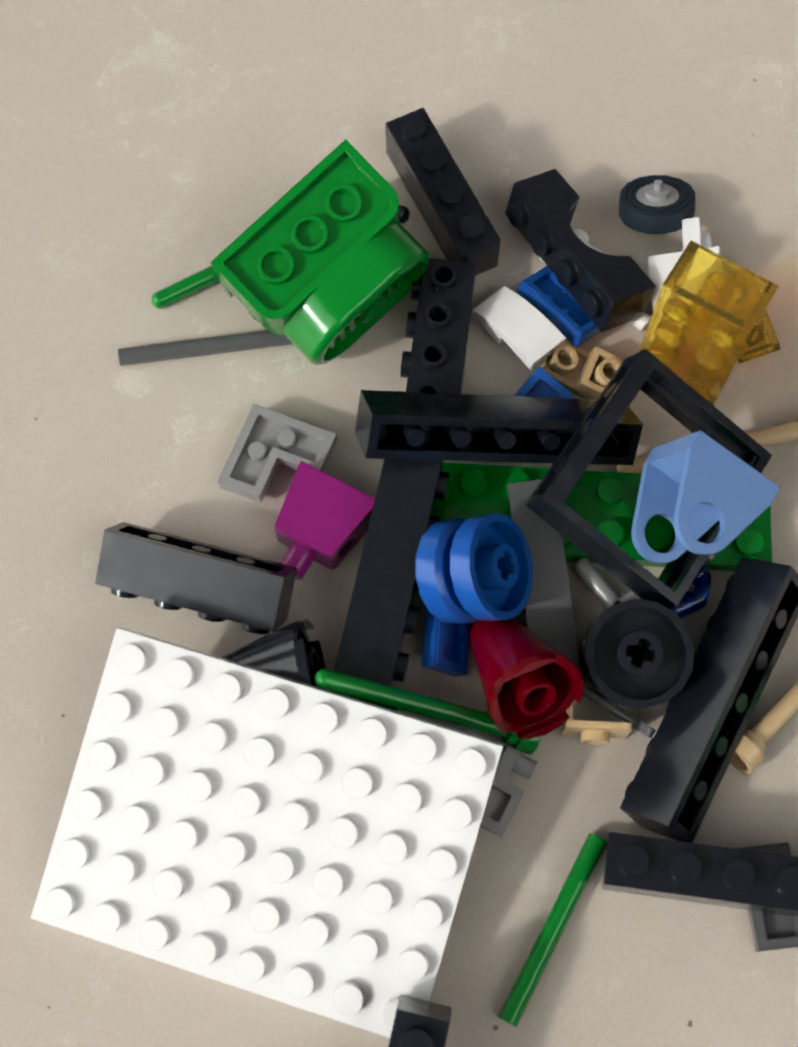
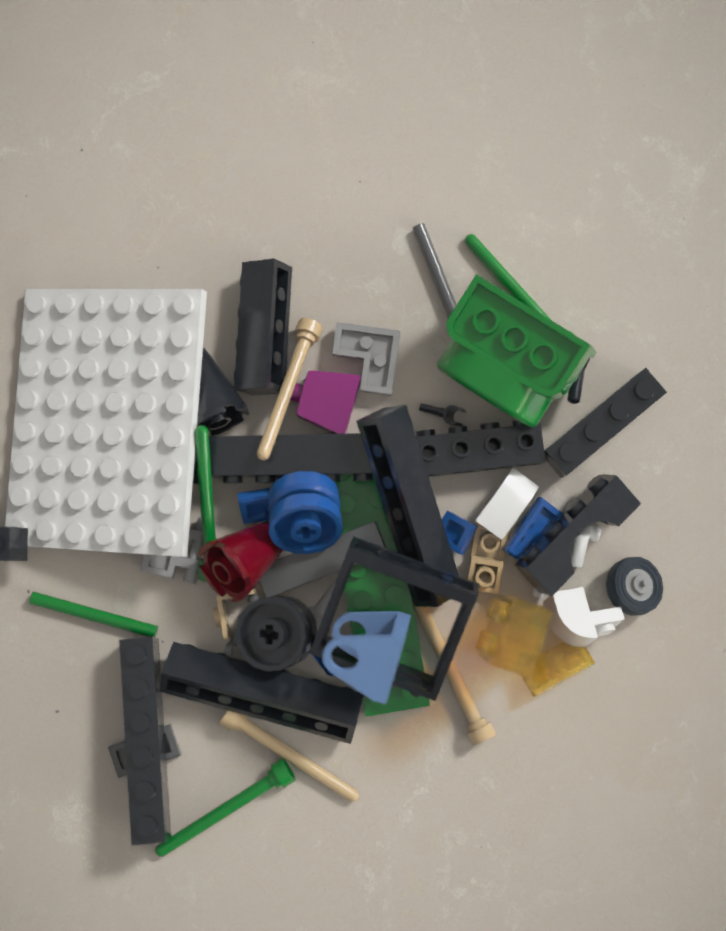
camera: 75 degrees right, 15 degrees up
(223, 525) = (307, 333): none -> tan piece
(378, 375) = (446, 413): none -> black hand

